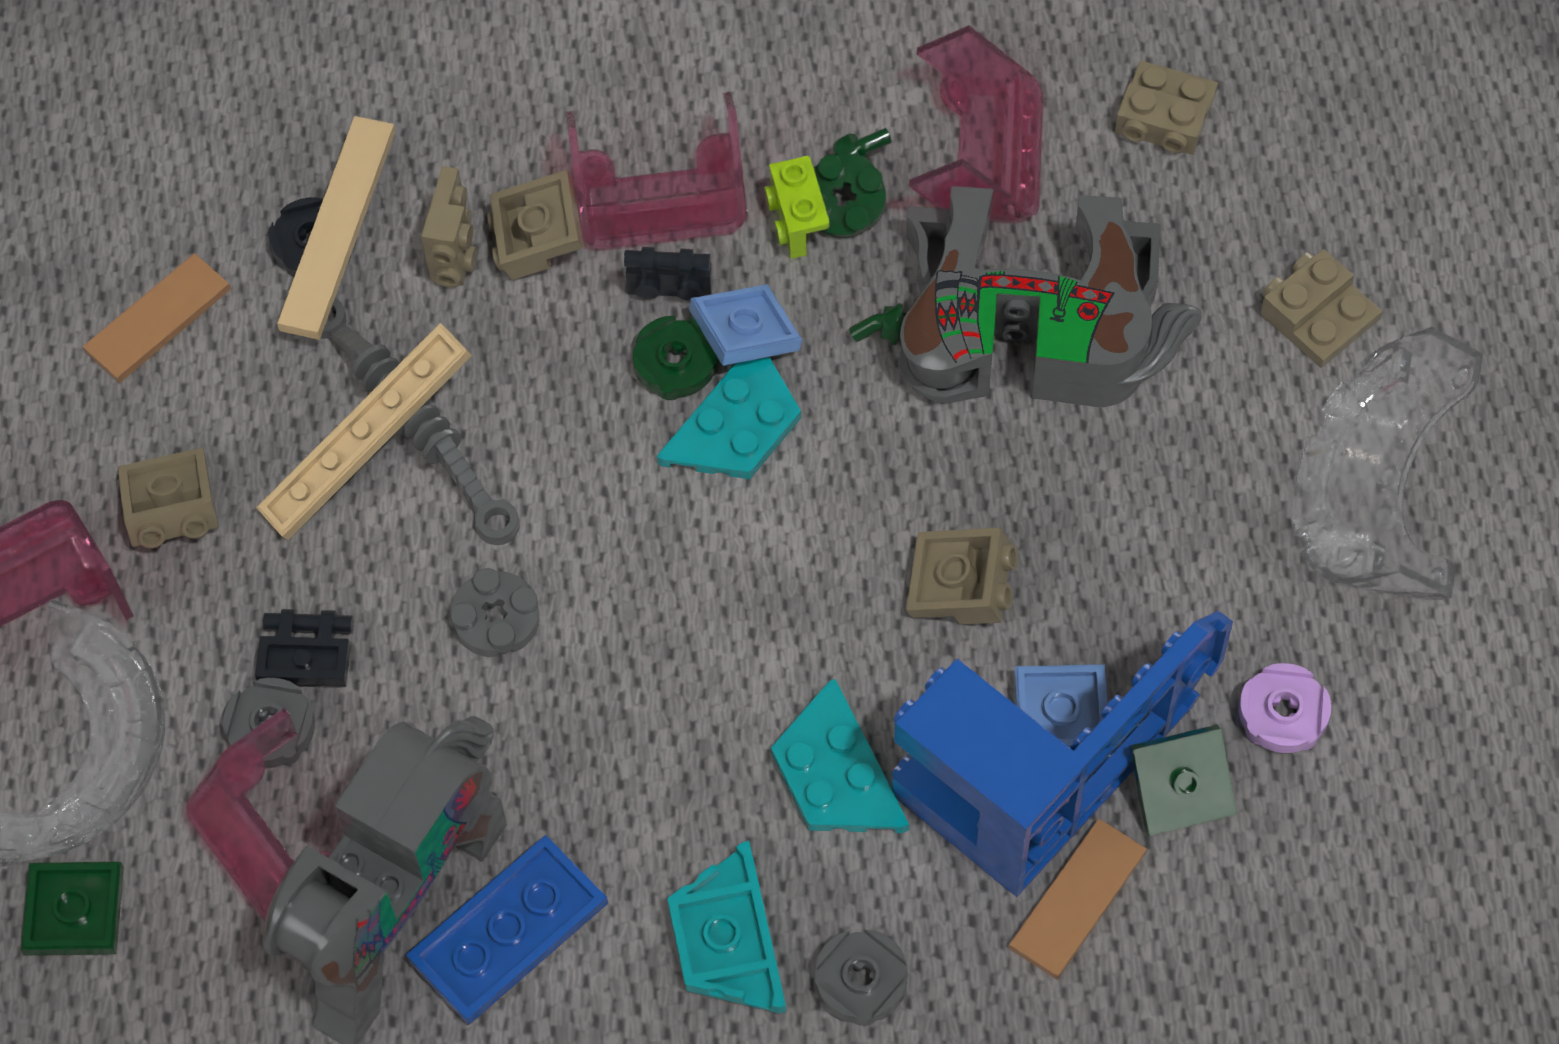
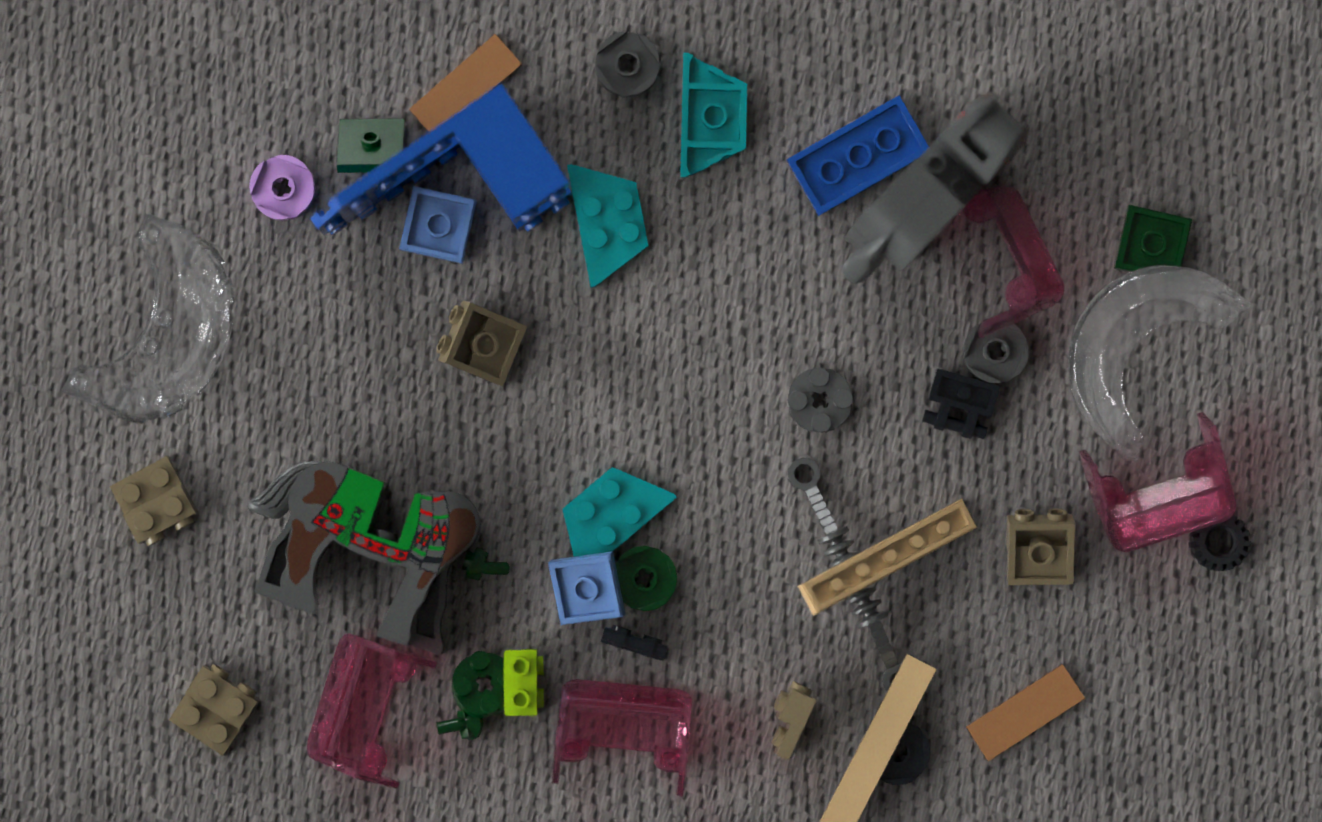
camera: 170 degrees left, 25 degrees up
(534, 224) = (725, 712): dark tan plate -> none

